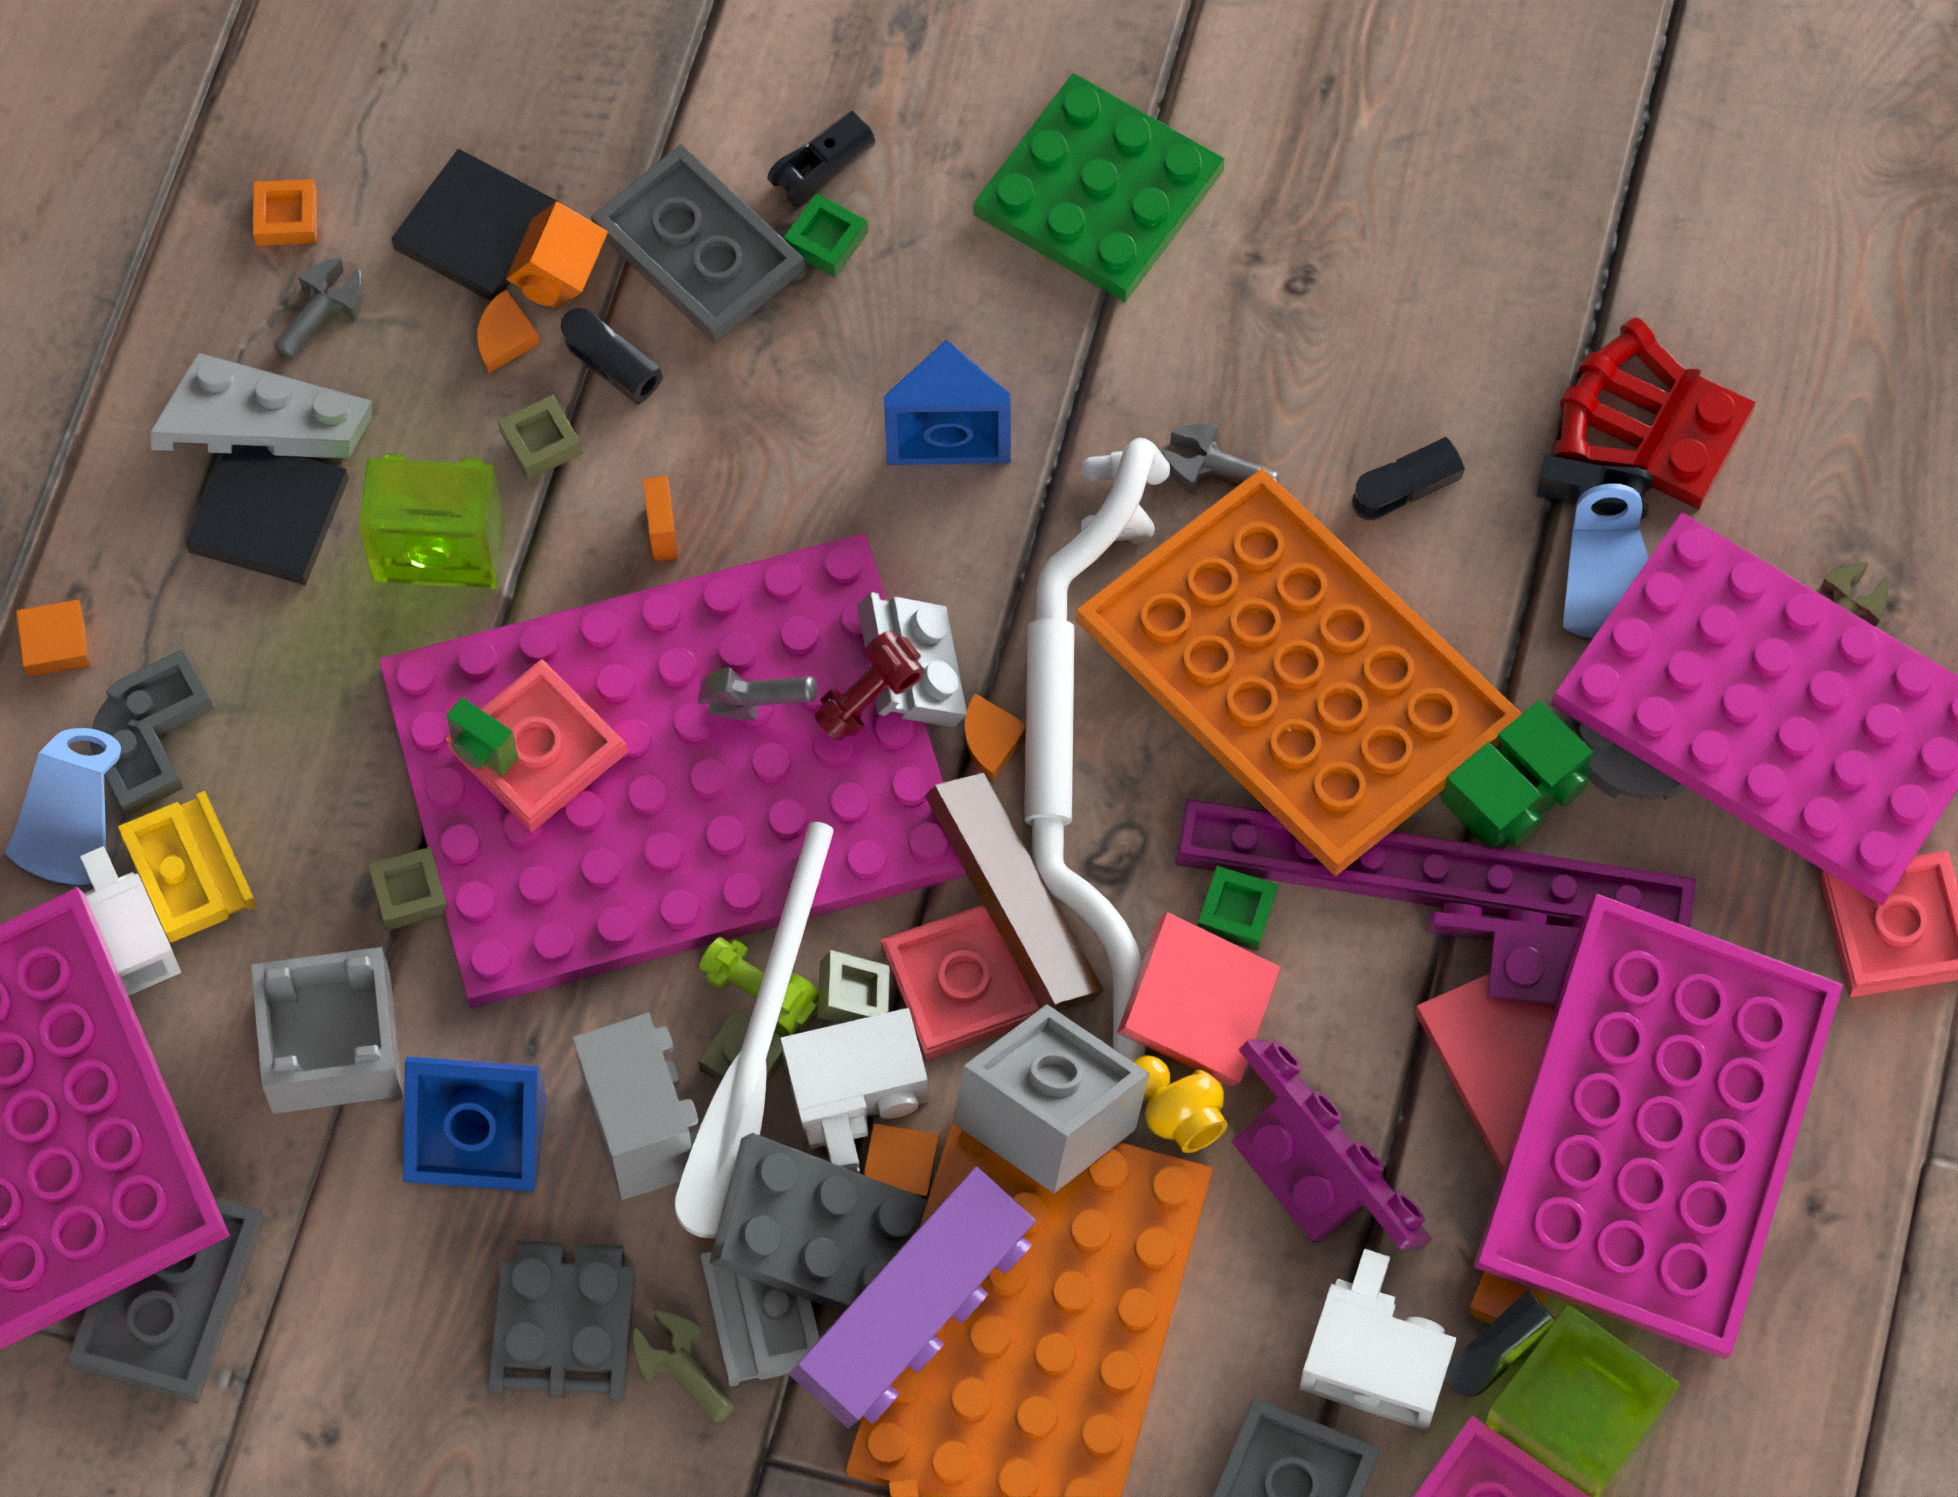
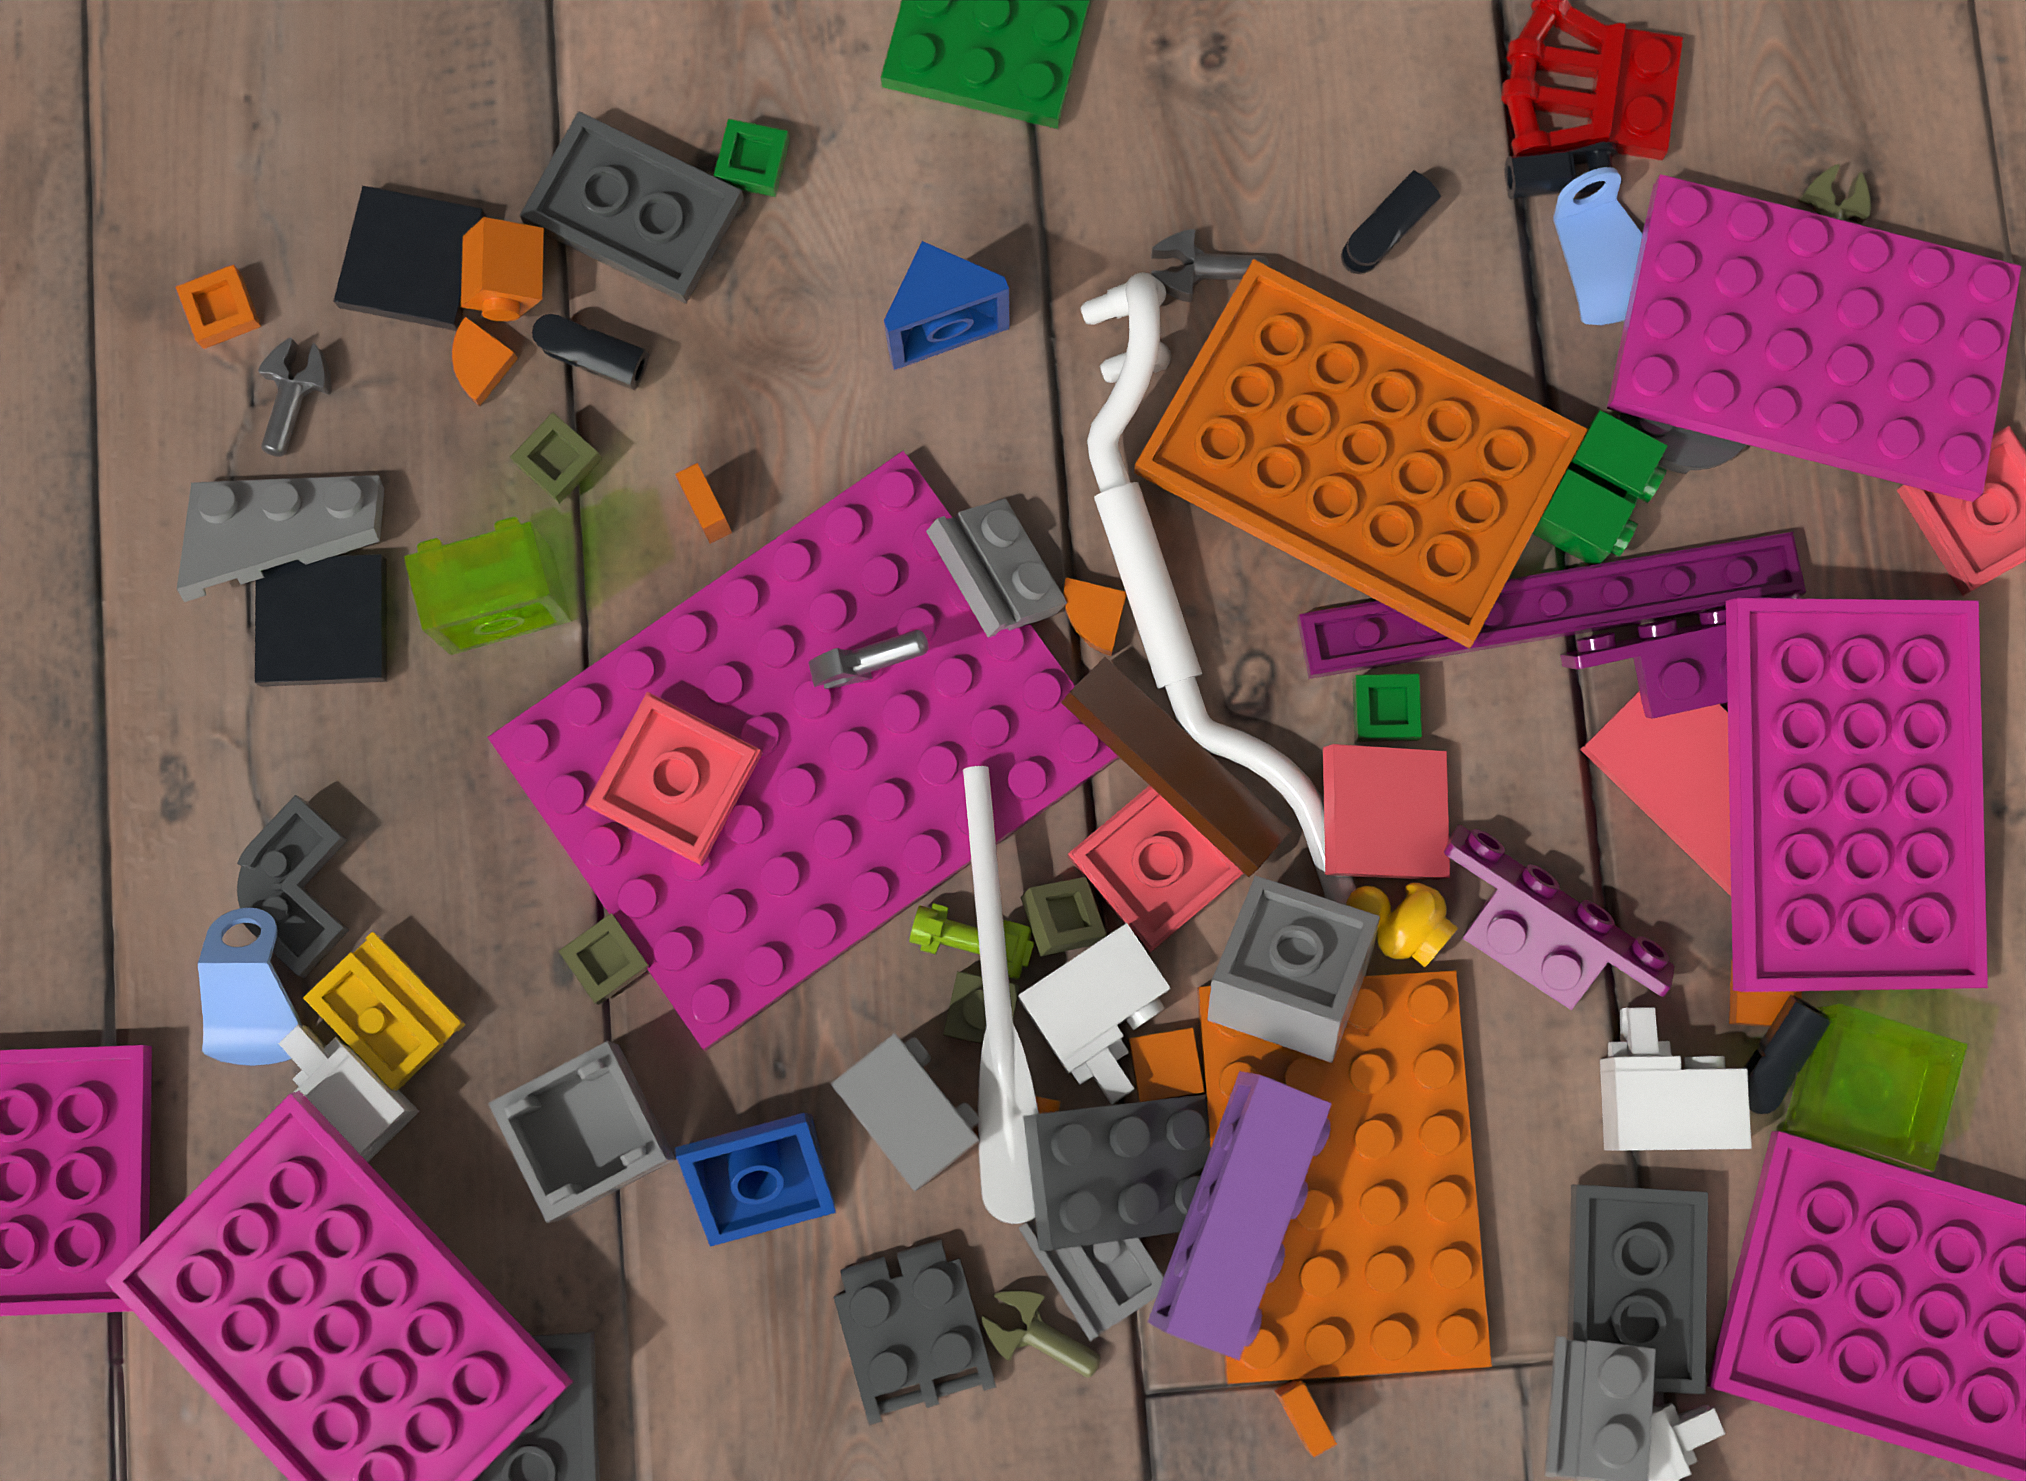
camera: 20 degrees left, 15 degrees up
(53, 638) = (163, 821): orange tile -> none
(481, 738) = (622, 803): green plate -> none
(826, 154) = (720, 72): black bar -> none
(893, 665) = (990, 591): dark red bar -> none

